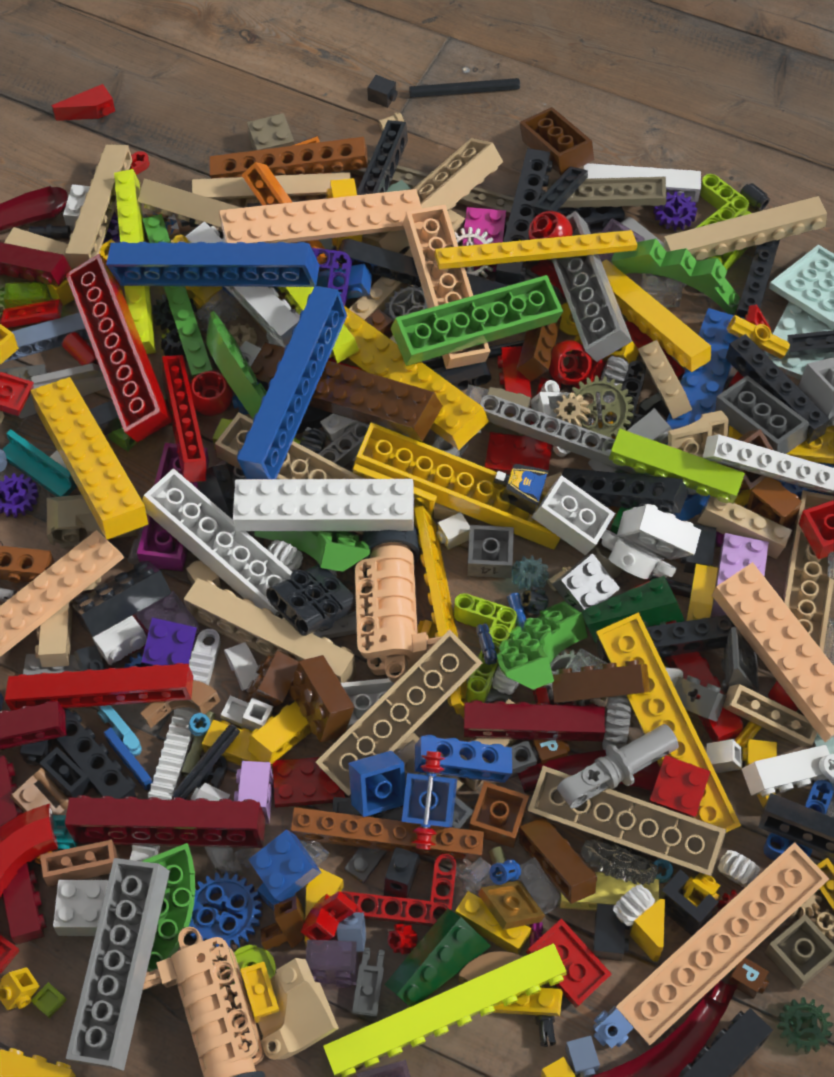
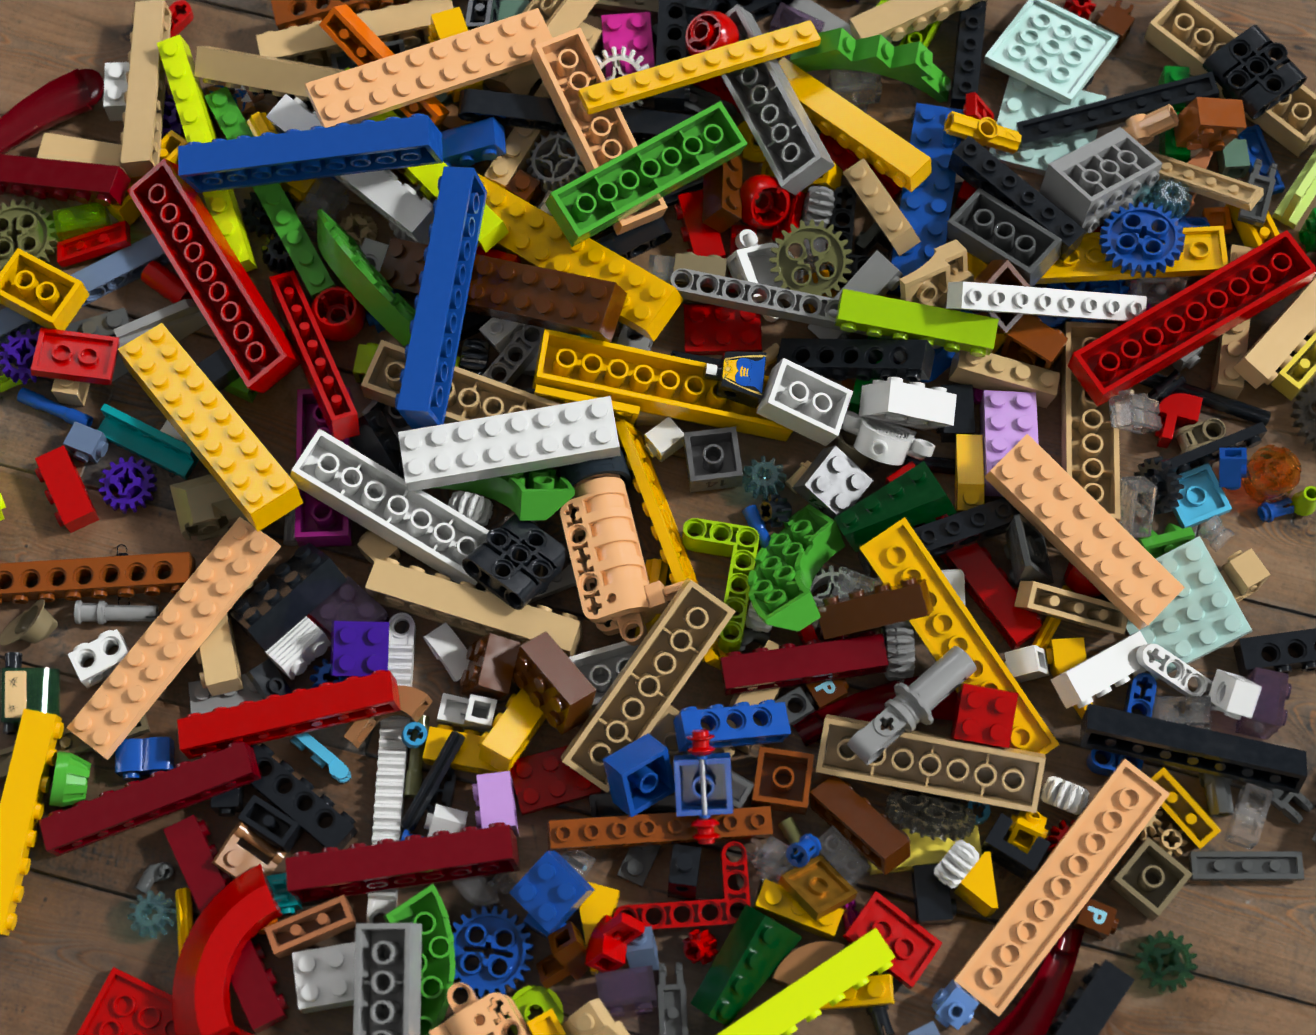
camera: 10 degrees left, 10 degrees up
(51, 231) = (91, 128): black pin -> none
(128, 759) = (339, 790): blue tile -> none
(332, 265) = (454, 126): dark purple beam -> none
(486, 644) = (732, 579): dark blue axle -> none
(568, 404) = (773, 263): tan gear -> none
(710, 702) = (1002, 604): dark grey brick -> none

